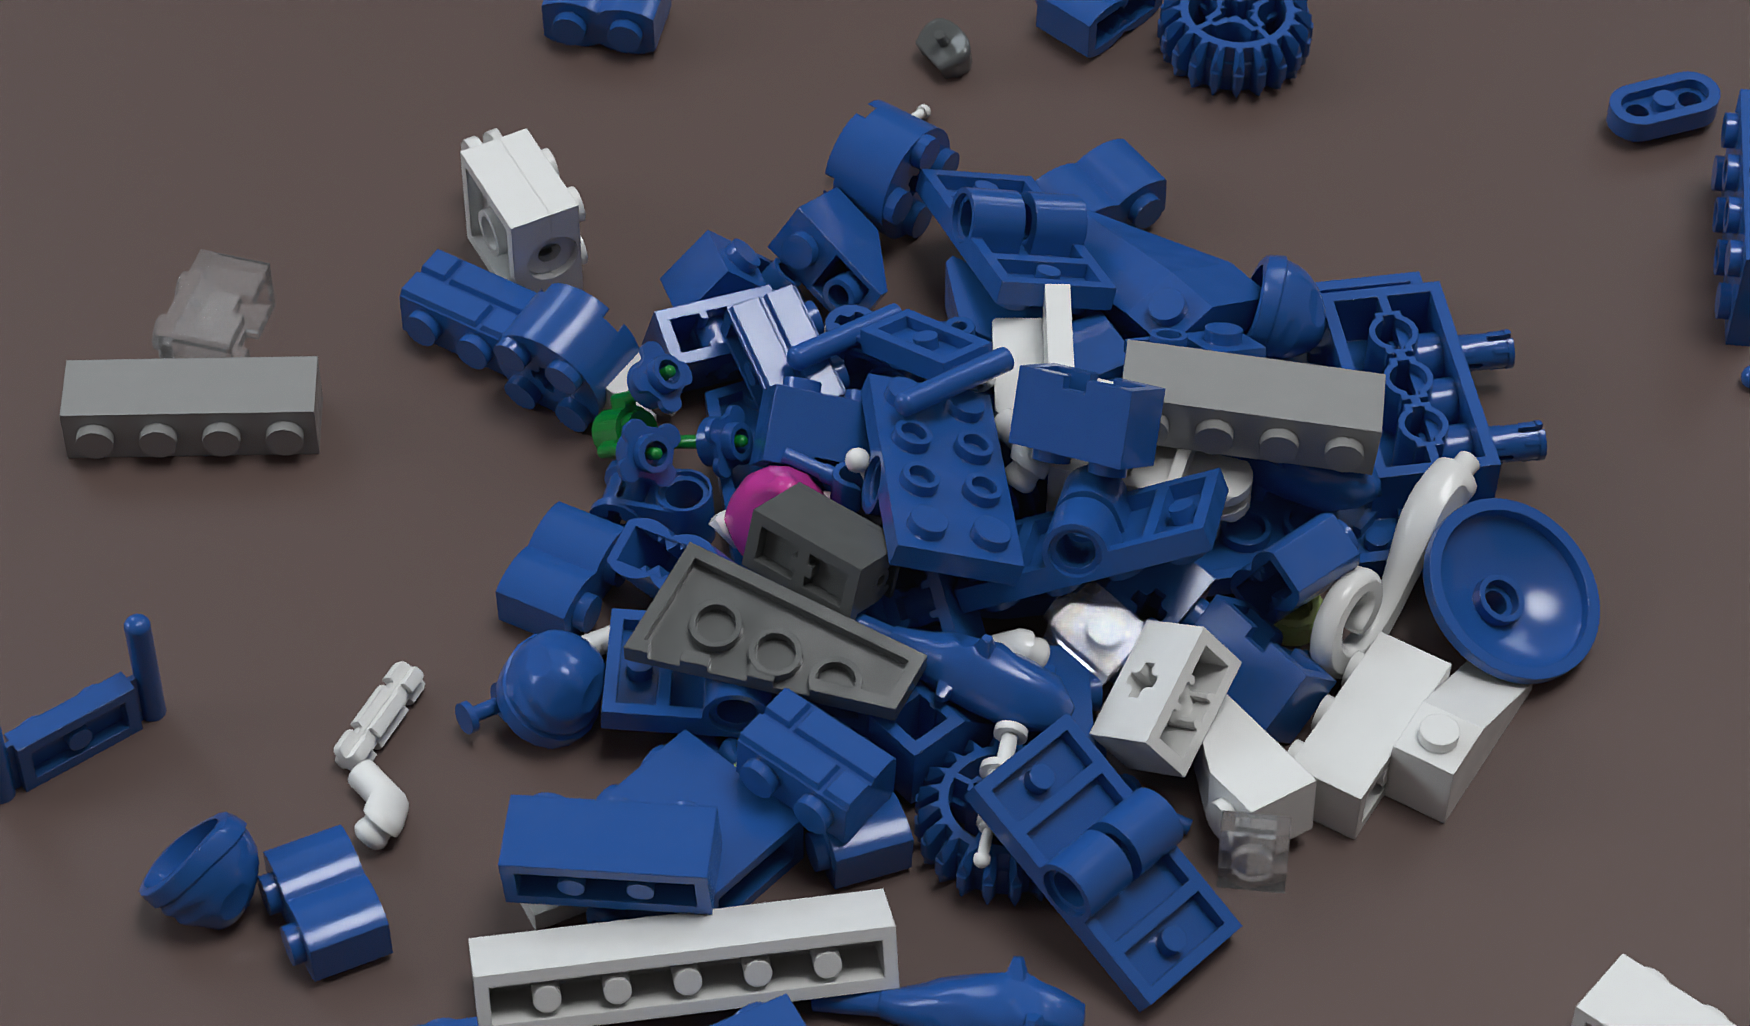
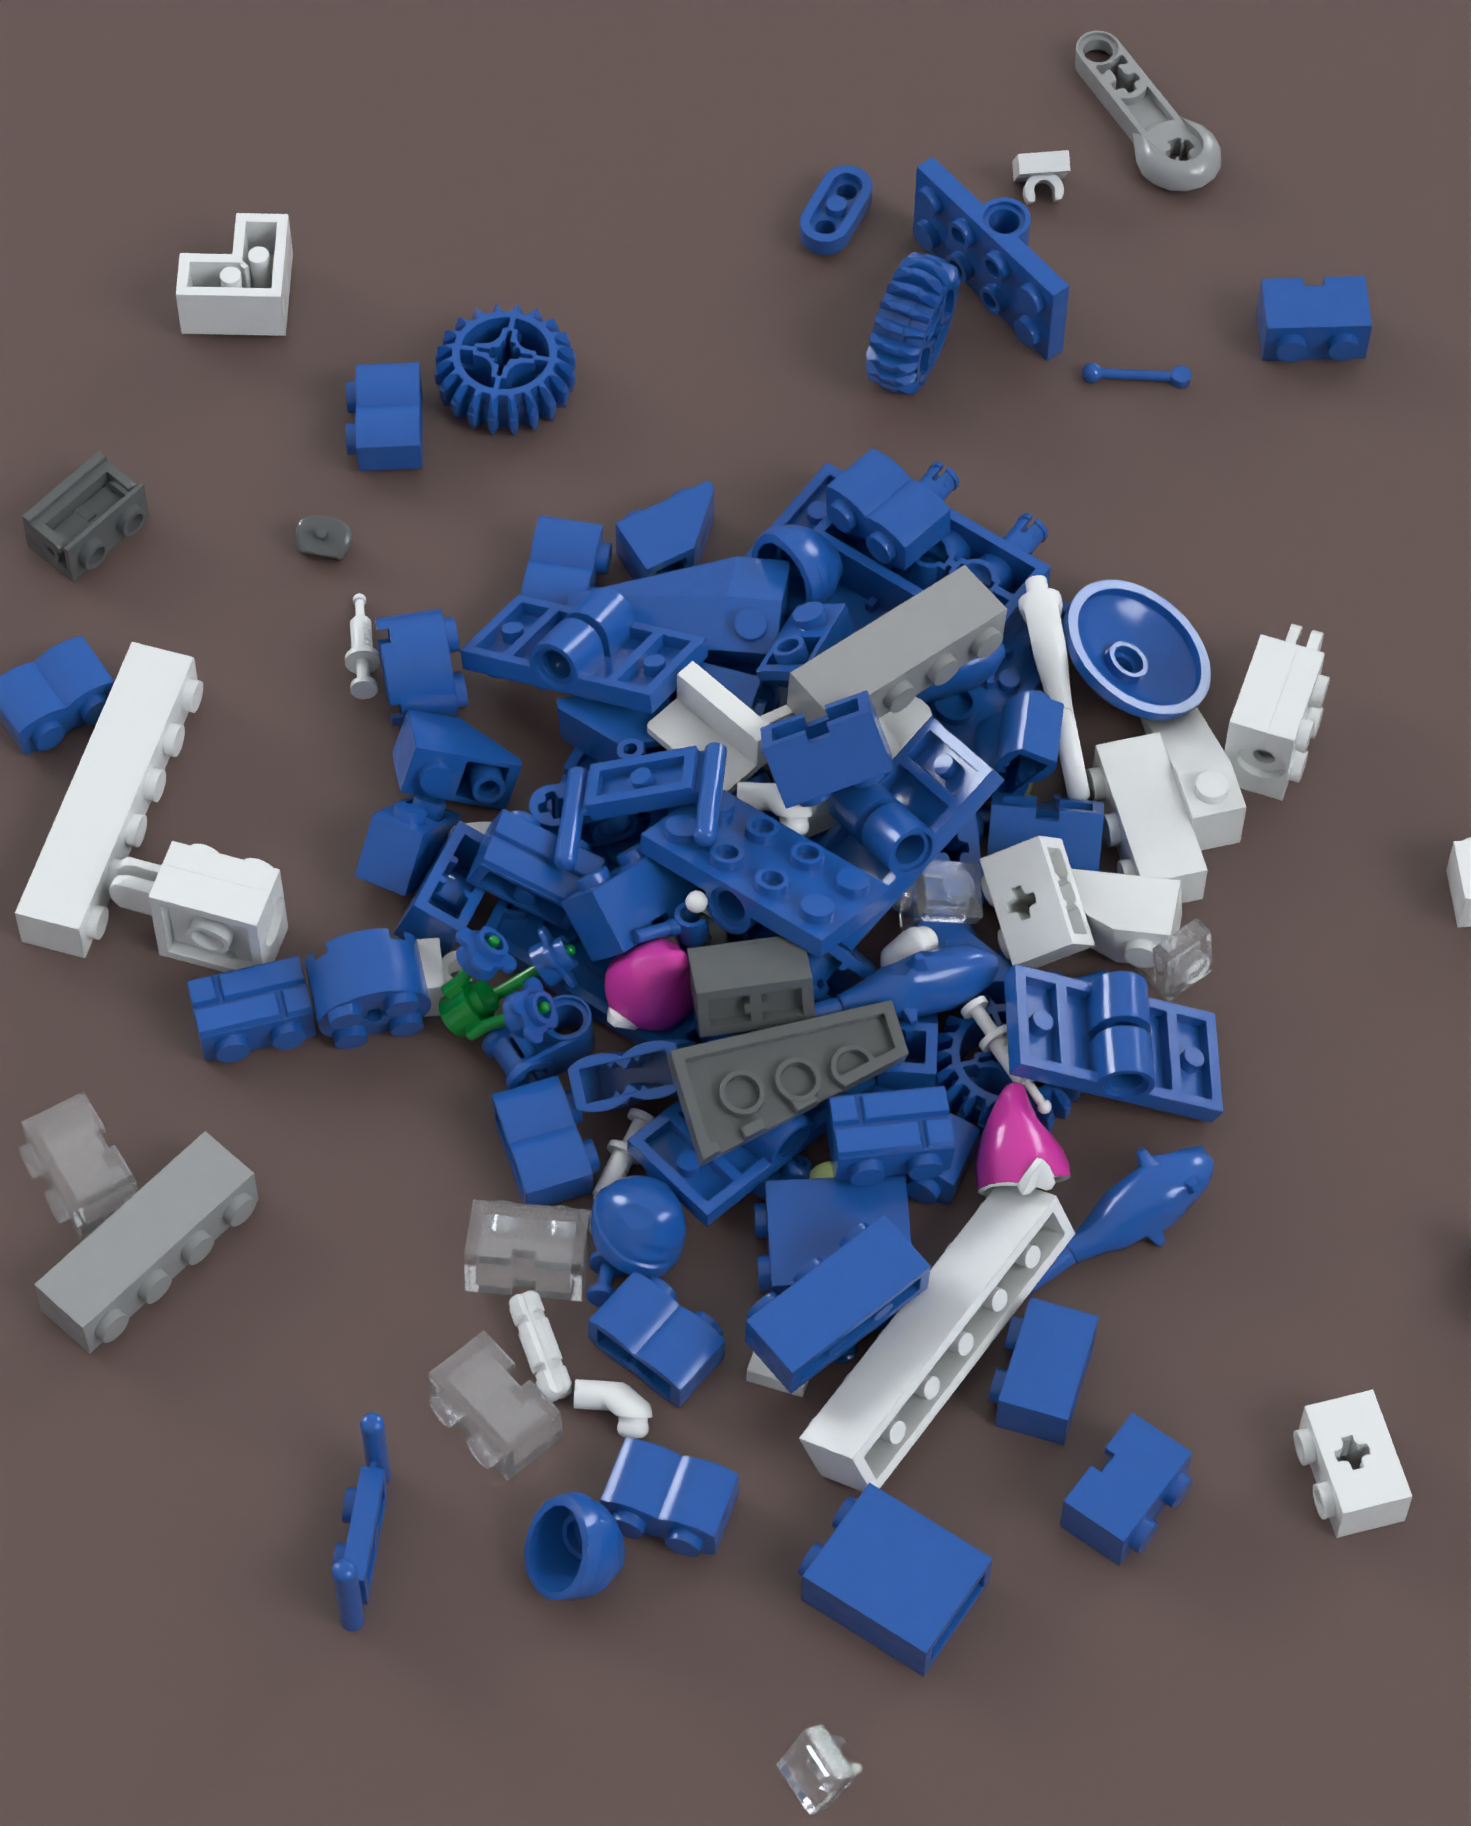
camera: 45 degrees left, 10 degrees up
(282, 715) = (503, 1420): none -> clear brick
(449, 630) = (527, 1248): none -> clear brick
(467, 780) = (657, 1337): none -> blue brick
(559, 95) = (109, 800): none -> white brick
(919, 874) = (1018, 1147): none -> dark pink hat
(1226, 225) = (666, 534): none -> blue slope
(1395, 313) = (887, 510): none -> blue brick
(1580, 726) = (1277, 713): none -> white brick
(1613, 215) = (912, 323): none -> blue gear

